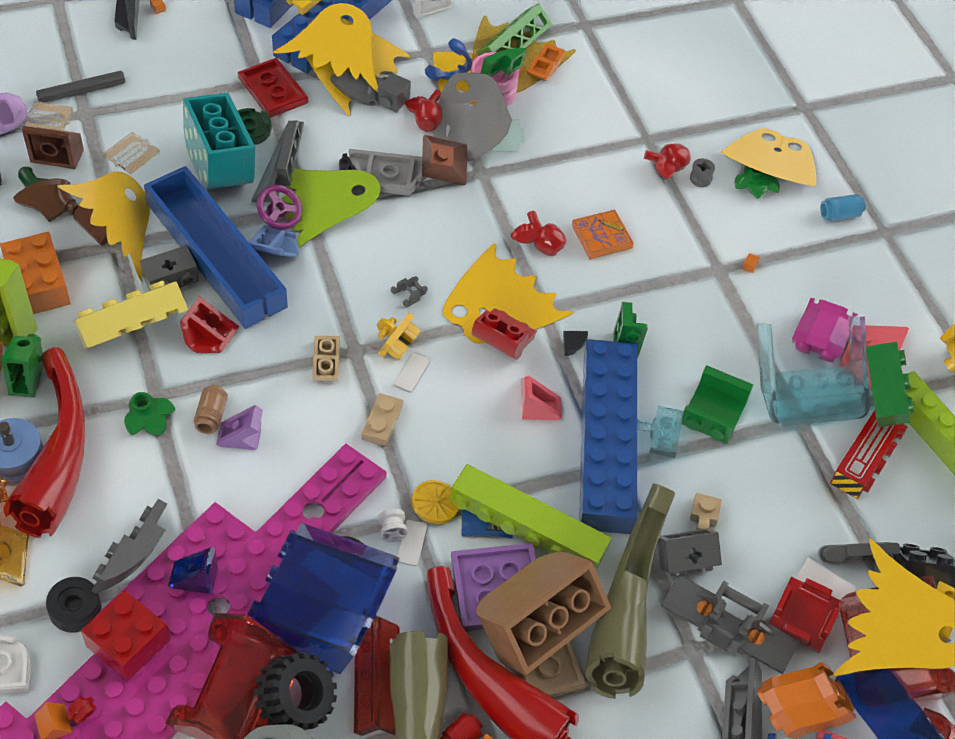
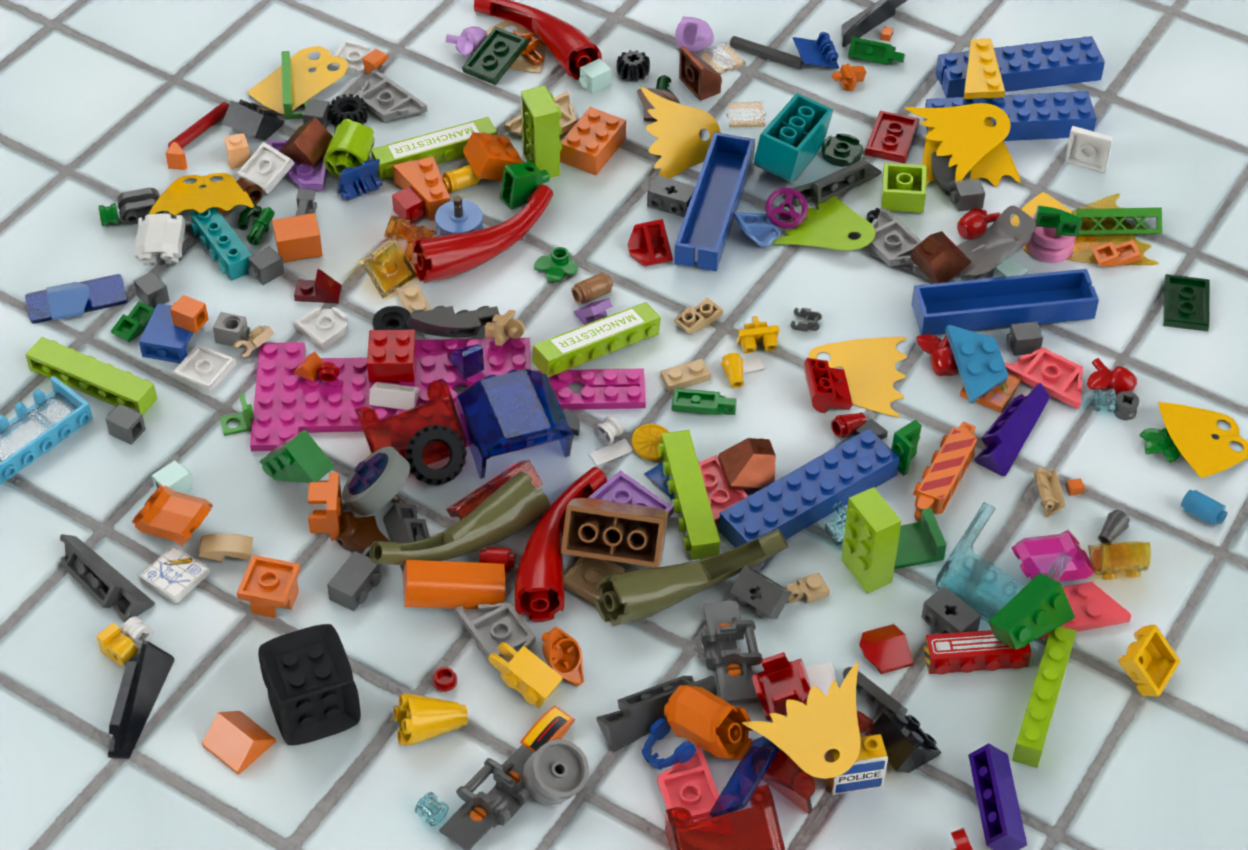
camera: 55 degrees right, 5 degrees down
(63, 562) = (413, 298): none -> tan plate
(127, 54) = (817, 52): none -> blue hinge
(129, 314) = (612, 200): light yellow wedge -> none
(170, 26) = (874, 51): none -> green hinge
(172, 671) = (393, 396): none -> white slope
(178, 60) = (849, 76): none -> orange piece
(188, 513) = (504, 327): none -> tan hips
(281, 454) = (596, 339): none -> lime brick
(344, 121) = (903, 187): none -> lime brick
(416, 380) = (733, 368): none -> yellow cone
(428, 431) = (702, 402): none -> green hinge
(459, 48) = (1040, 190): blue piece -> none
(530, 160) = (1005, 301): none -> blue piece
(539, 401) = (793, 439): coral slope -> none
(541, 451) = (749, 464): none -> copper slope
(552, 490) = (718, 493): none -> coral wing
(554, 351) = (846, 424): none -> red cone
(578, 175) = (1024, 338): none -> dark grey brick
(579, 220) = (977, 361): none -> dark azure wing
(629, 190) = (1057, 375): none -> coral wing
(631, 65) = (1186, 302): none -> dark green tile
(660, 257) = (1011, 431): none -> dark purple wedge
(667, 327) = (946, 470): none -> orange hinge
(686, 180) = (1104, 400): none -> clear light blue wheel
(726, 428) = (870, 539): none -> lime brick
(746, 281) = (1049, 490): none -> tan hinge
(811, 506) = (886, 648): none -> red slope
(813, 269) = (1114, 526): none -> dark grey cone
(820, 439) = (949, 613): none -> dark grey brick
(853, 286) = (1120, 558): none -> clear yellow brick

